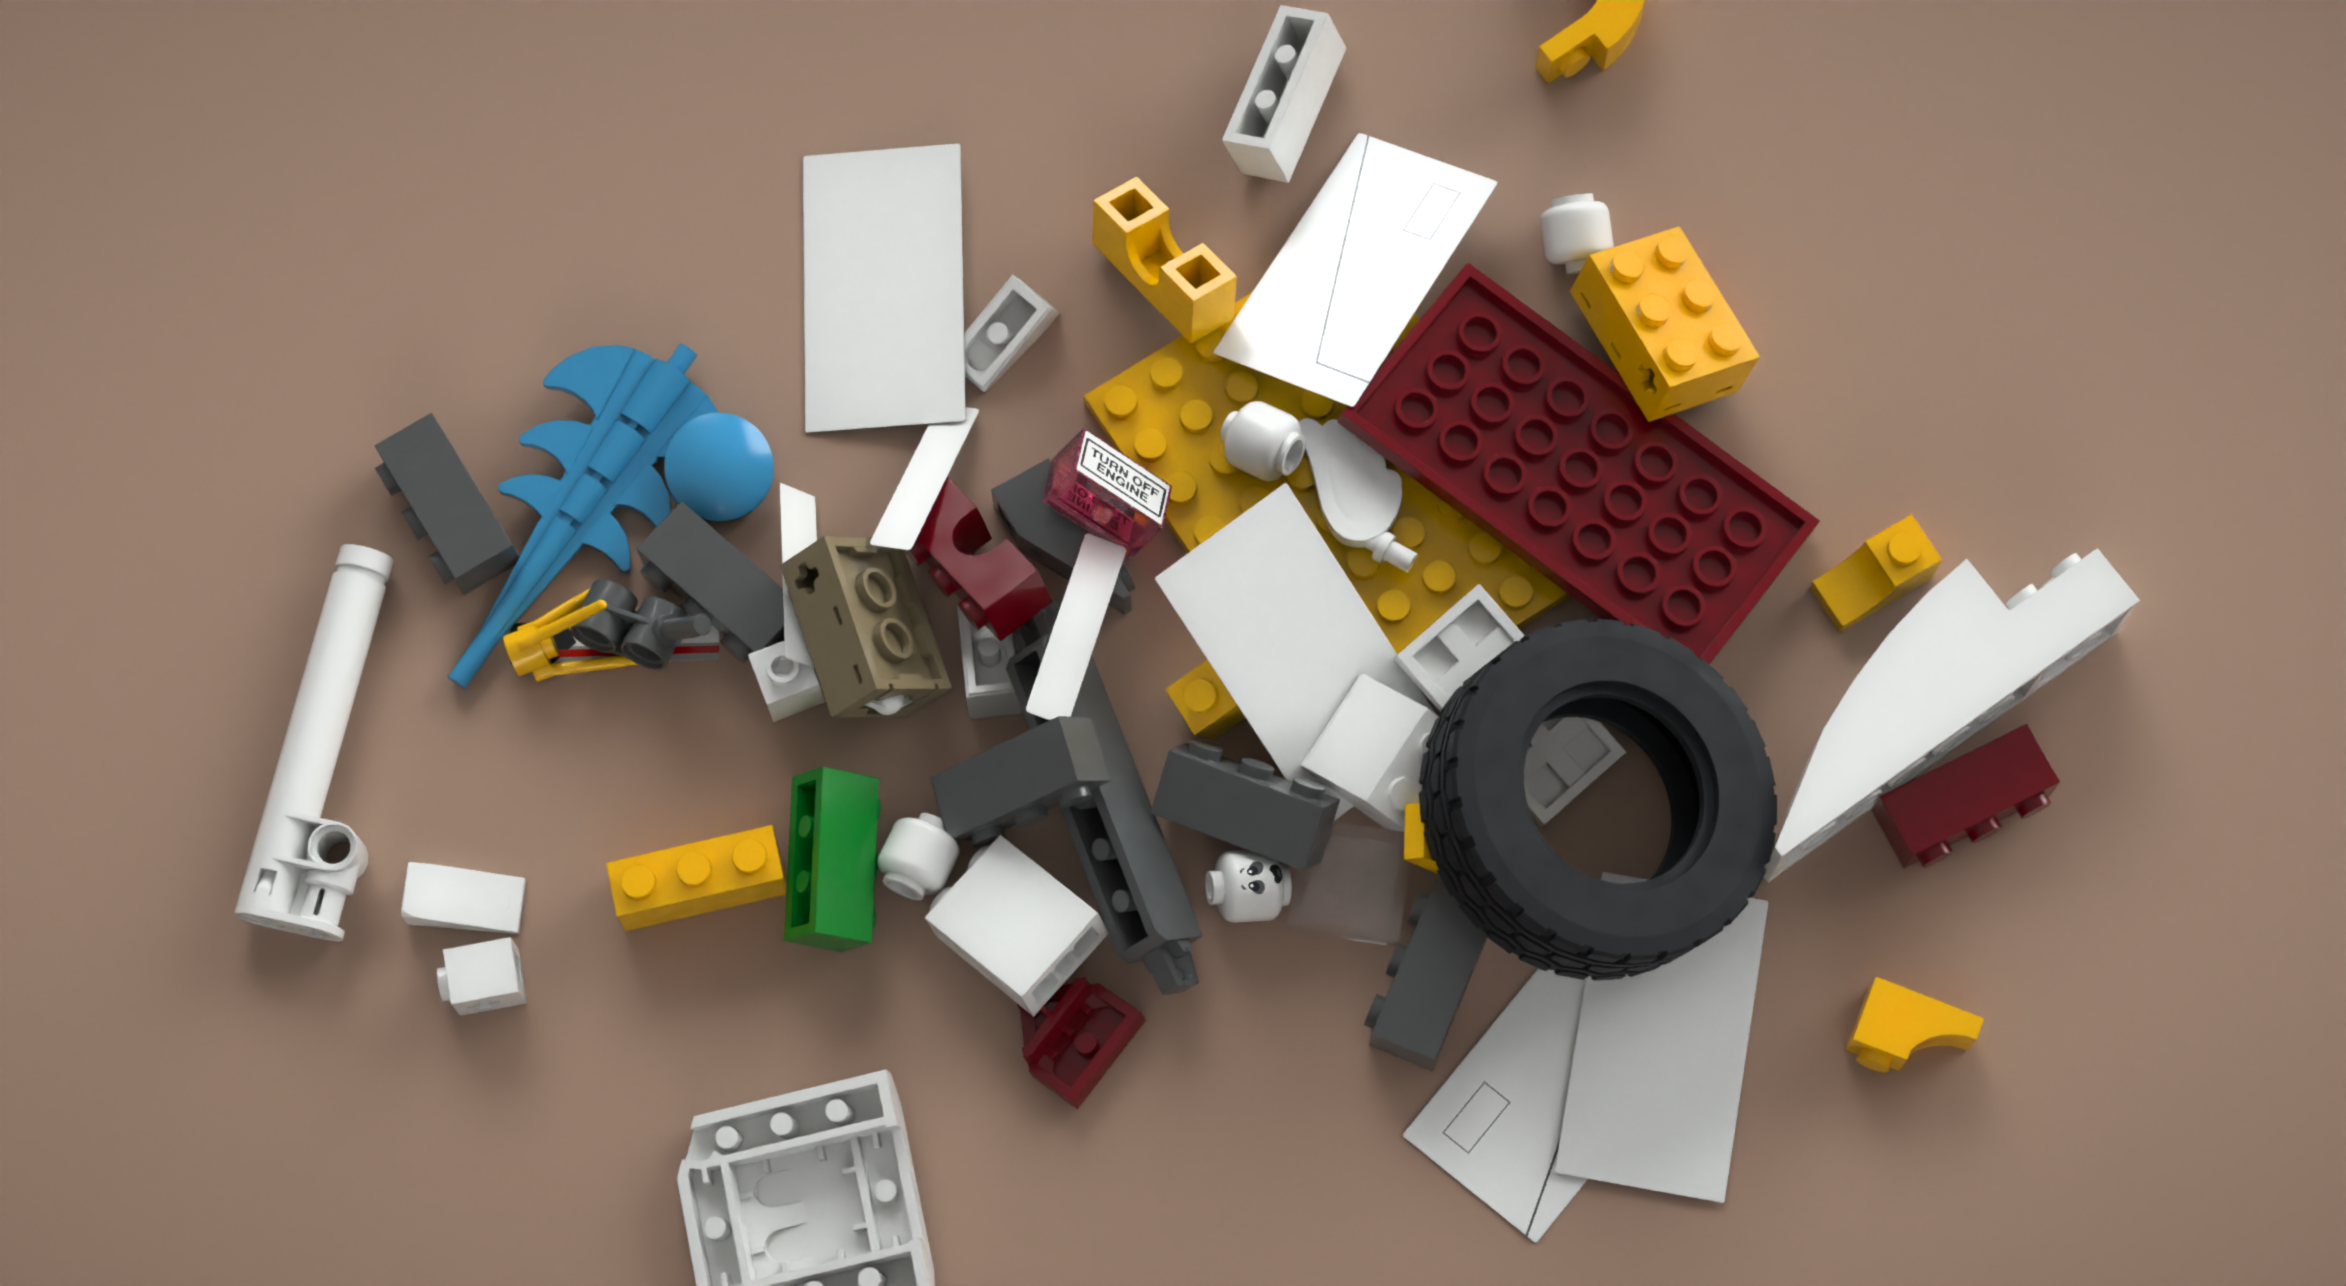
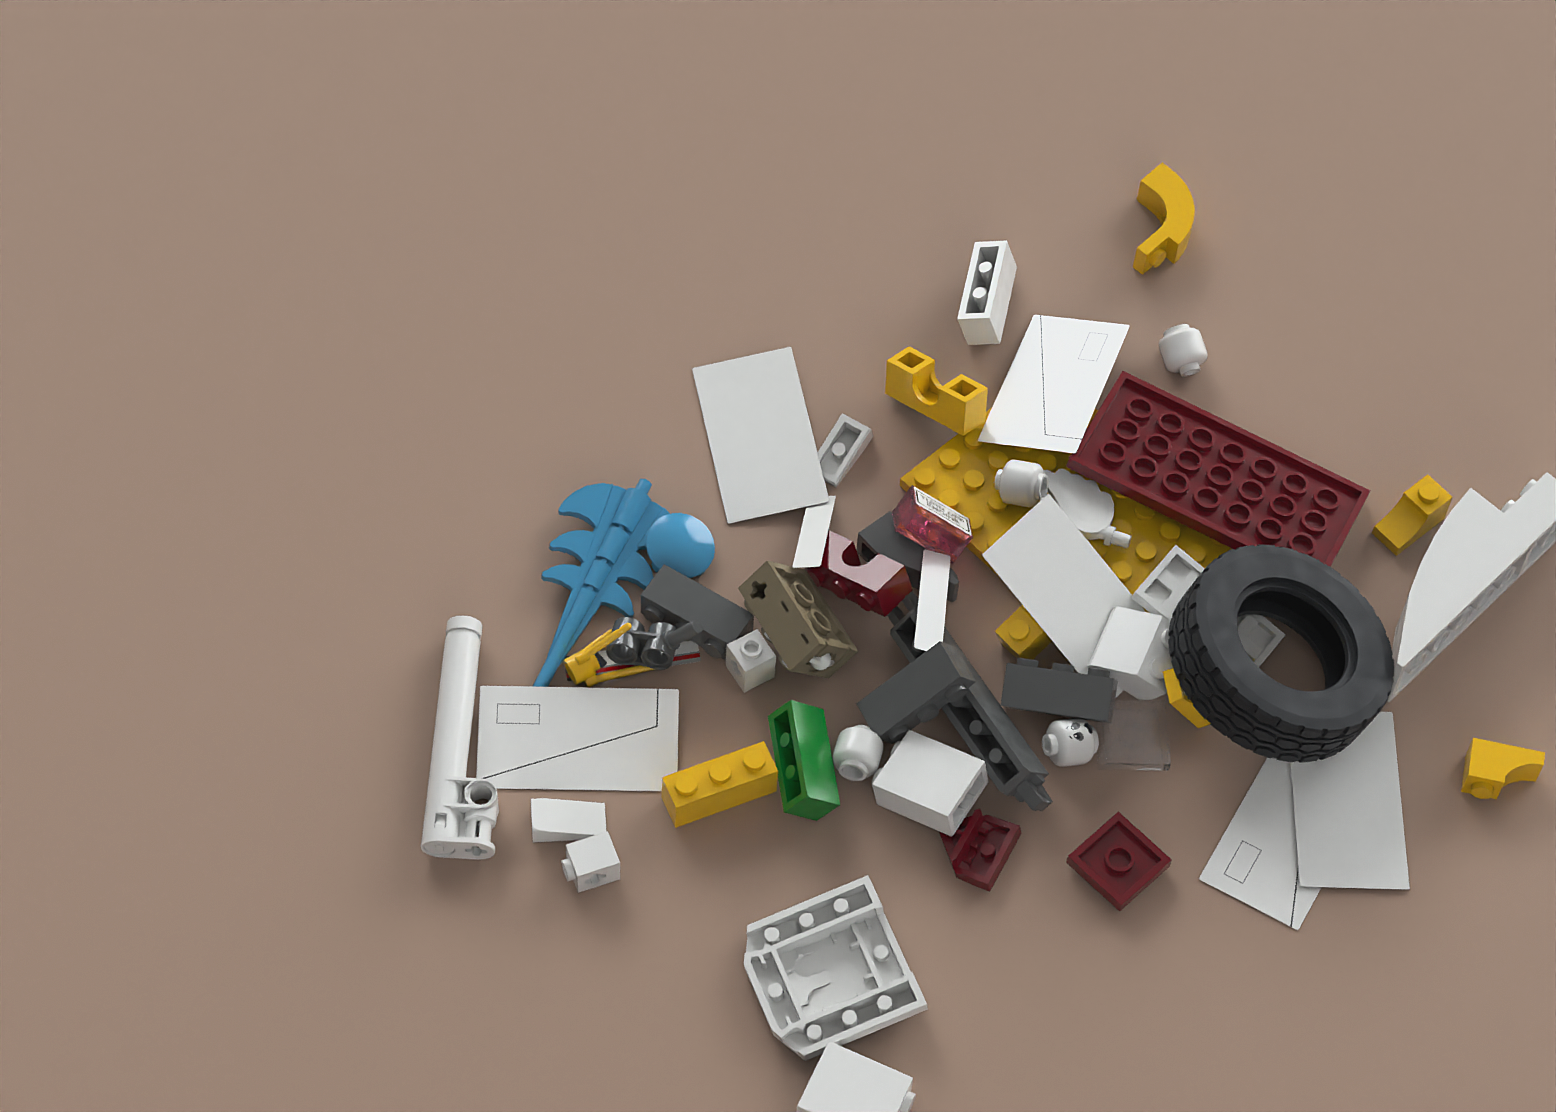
camera: 15 degrees left, 15 degrees down
(445, 505) = (510, 589): dark grey brick -> none
(504, 764) = (577, 737): none -> white sticker
(797, 533) = (739, 576): white sticker -> none
(985, 674) = (874, 640): white slope -> none
(1282, 1093) = (1119, 861): none -> dark red plate
(1427, 980) = (1195, 780): dark grey brick -> none
(1664, 323) = (1250, 389): yellow piece -> none
(1966, 798) = (1499, 634): dark red brick -> none

